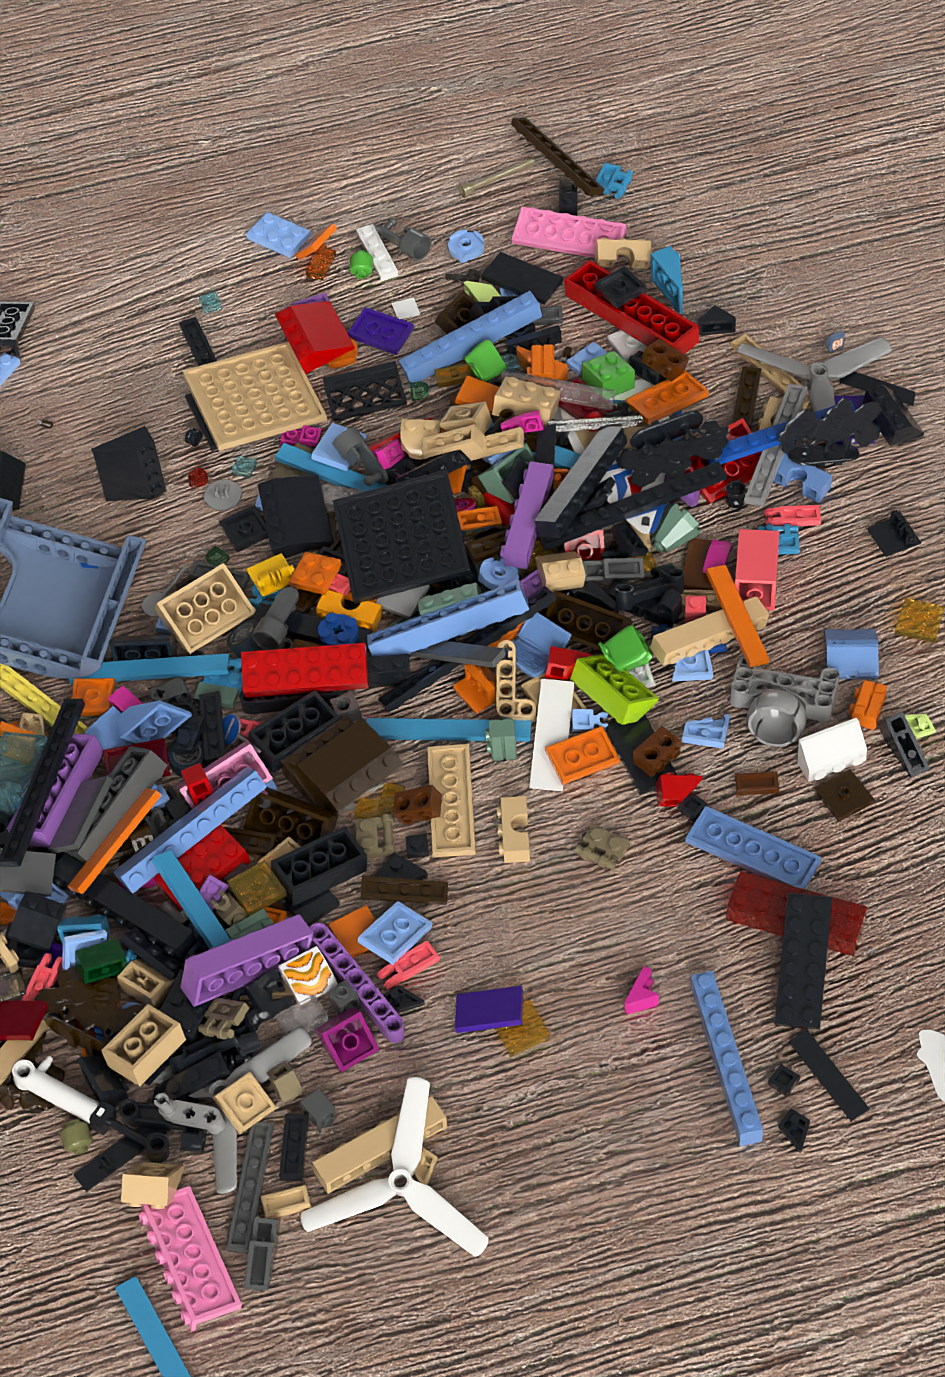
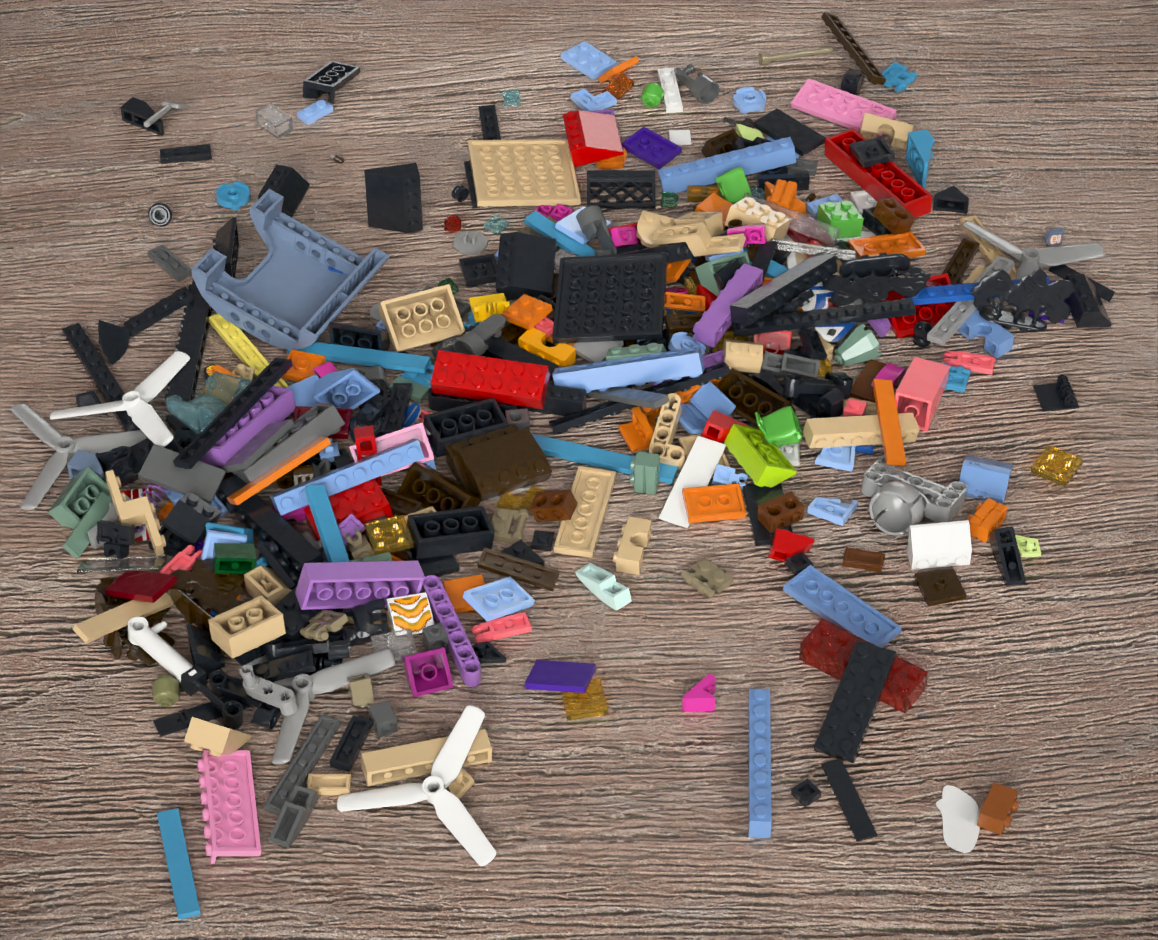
camera: 10 degrees right, 10 degrees down
(244, 1102) = (319, 696): tan tile -> none
(300, 289) = (592, 103): none -> light blue plate
(335, 622) = (533, 354): blue plate -> none
(499, 886) = (604, 586): none -> light aqua slope
(795, 1128) = (803, 833): black piece -> none

